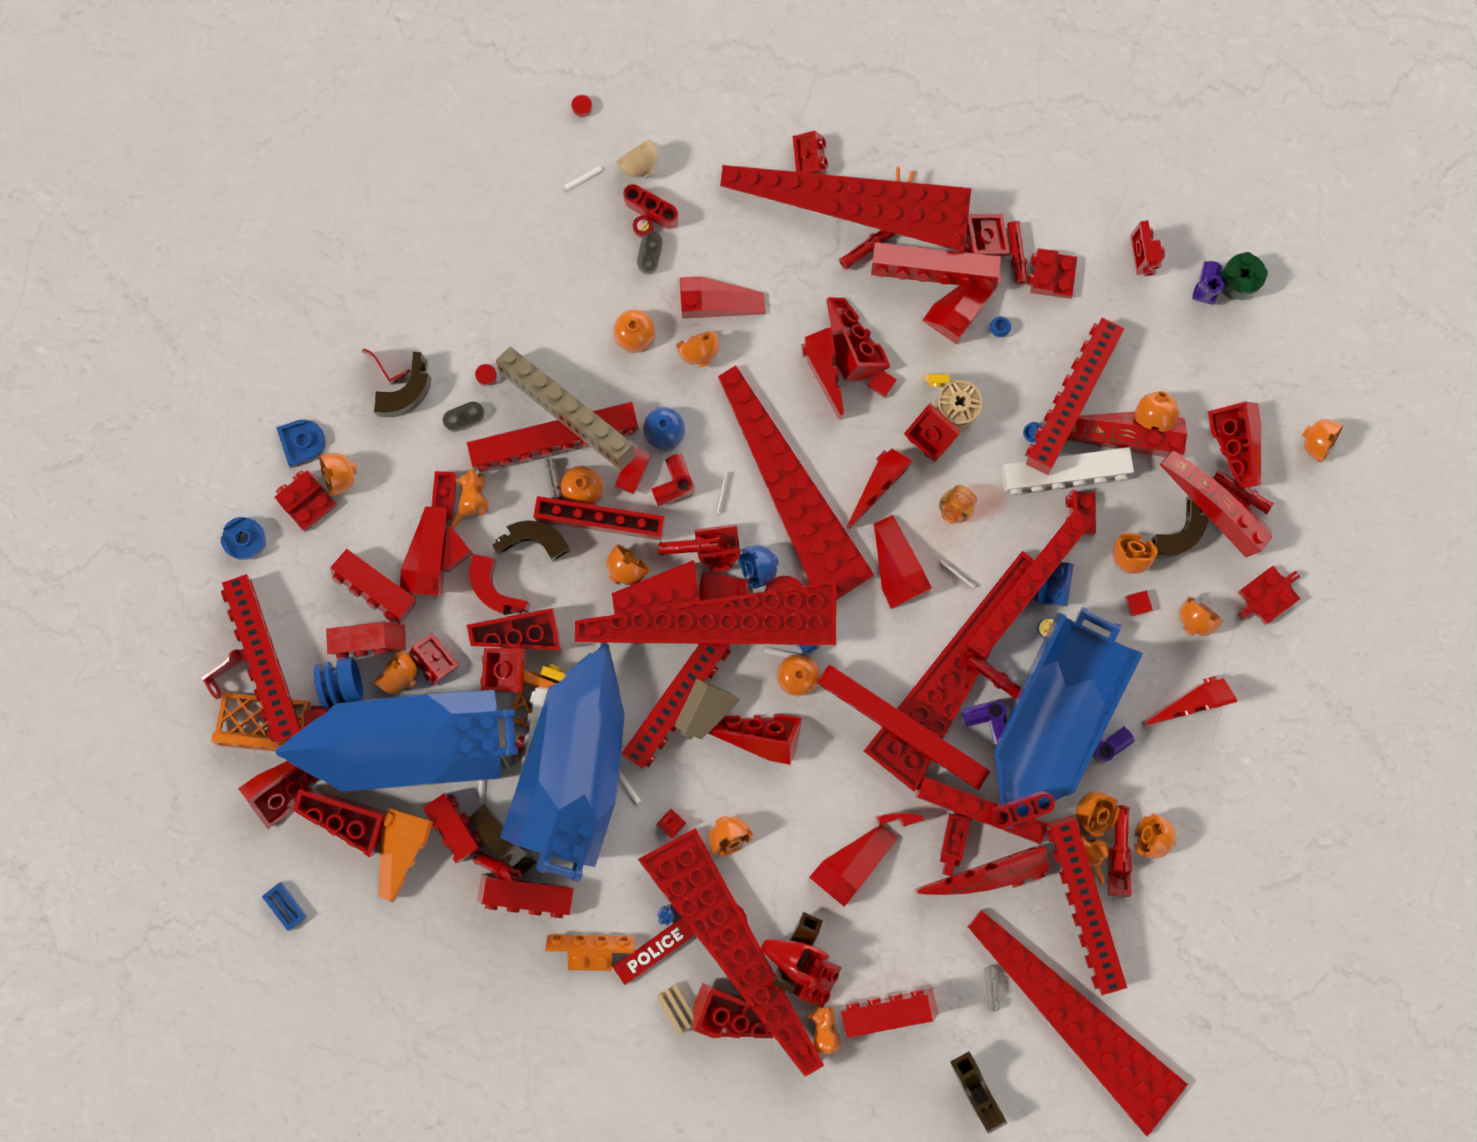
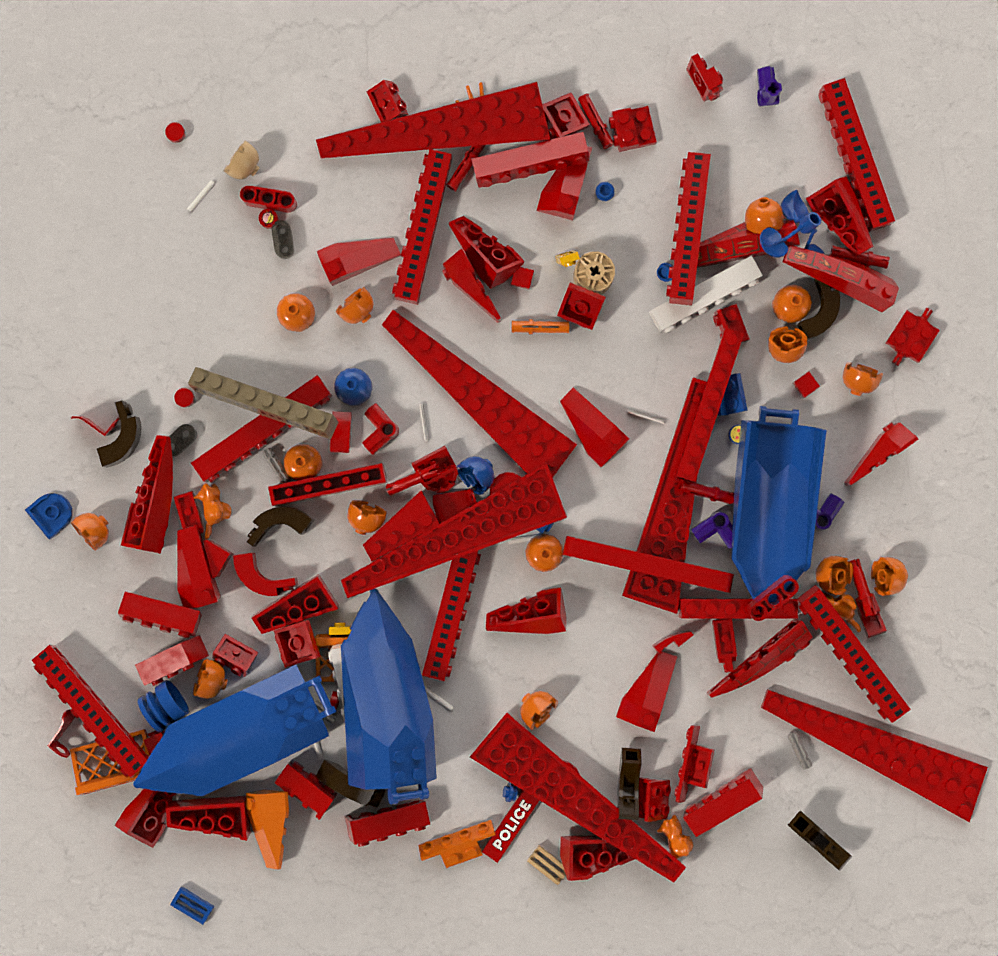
camera: 15 degrees left, 5 degrees up
(231, 535) = (35, 625): blue plate -> none
(305, 499) = (73, 562): red plate -> none
(404, 479) = (150, 513): none -> red wedge
(501, 868) = (358, 809): red pin -> none
(671, 823) = (485, 715): red tile -> none
(704, 709) = (477, 612): dark tan slope -> none
(787, 955) = (622, 790): red animal -> none
(798, 293) = (423, 226): none -> red brick
(857, 430) = (516, 326): none -> orange pin
(874, 961) = (695, 765): none -> red bracket
(888, 470) = (553, 358): red wedge -> none
(957, 504) = (624, 359): clear orange piece -> none
(1154, 513) = (792, 303): none -> orange cylinder
(1189, 416) = (795, 210): none -> blue plant
(1253, 274) = (795, 60): dark green brick -> none
(1276, 386) = (856, 154): none -> red brick
(1321, 438) = (909, 186): orange cylinder -> none

